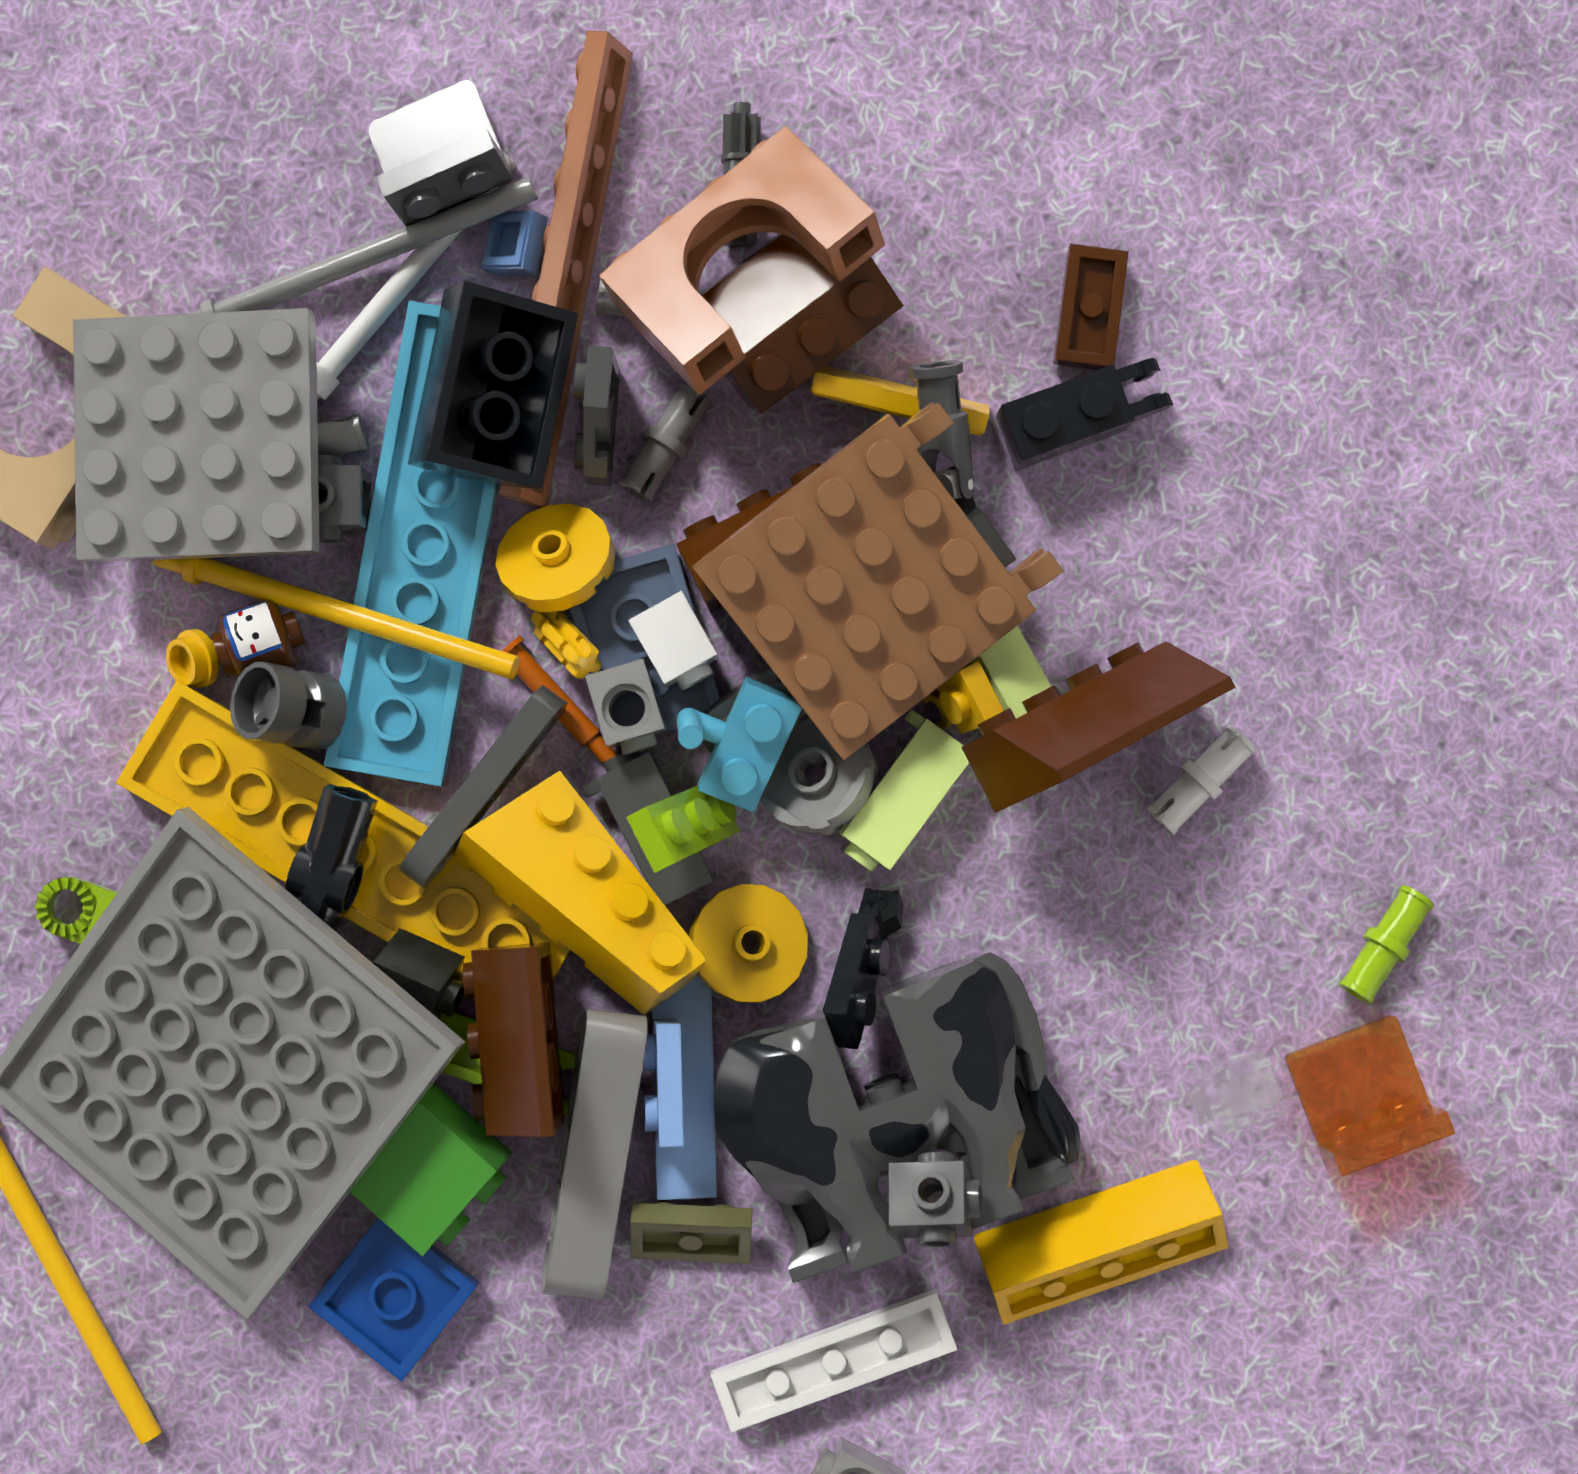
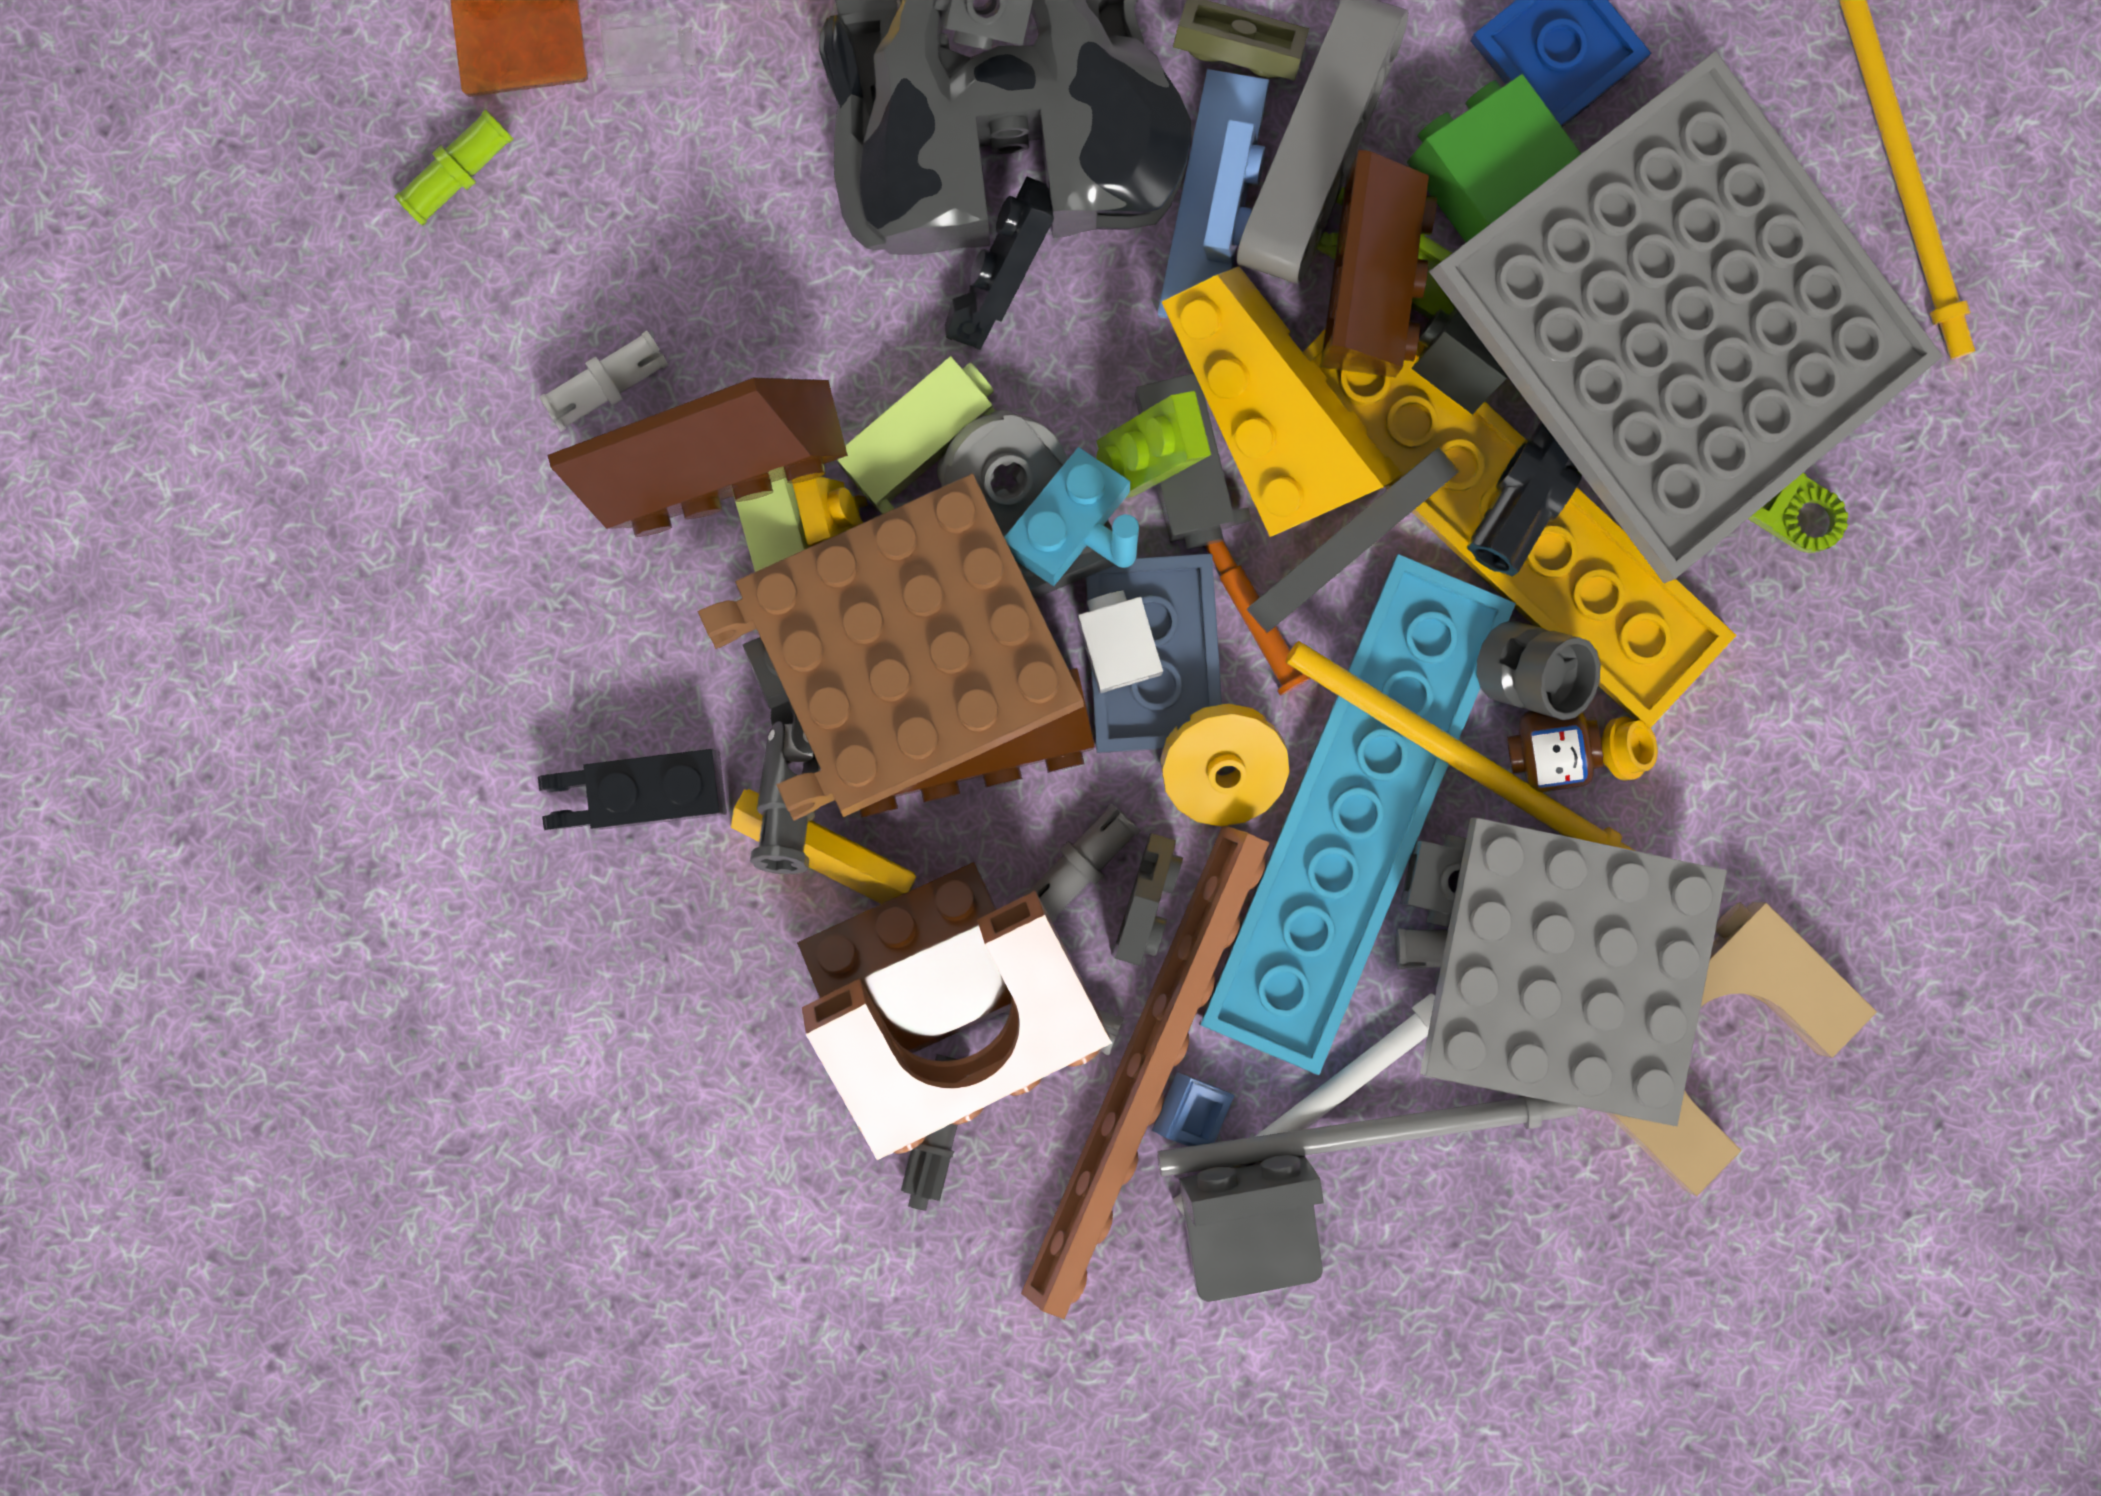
camera: 165 degrees left, 0 degrees up
(493, 387) = (1250, 951): black slope -> none
(566, 642) = (1232, 667): yellow axle -> none
(614, 682) = (1180, 615): light grey brick -> none
(719, 935) = (1139, 339): yellow plate -> none
(1090, 307) = (598, 903): reddish brown plate -> none

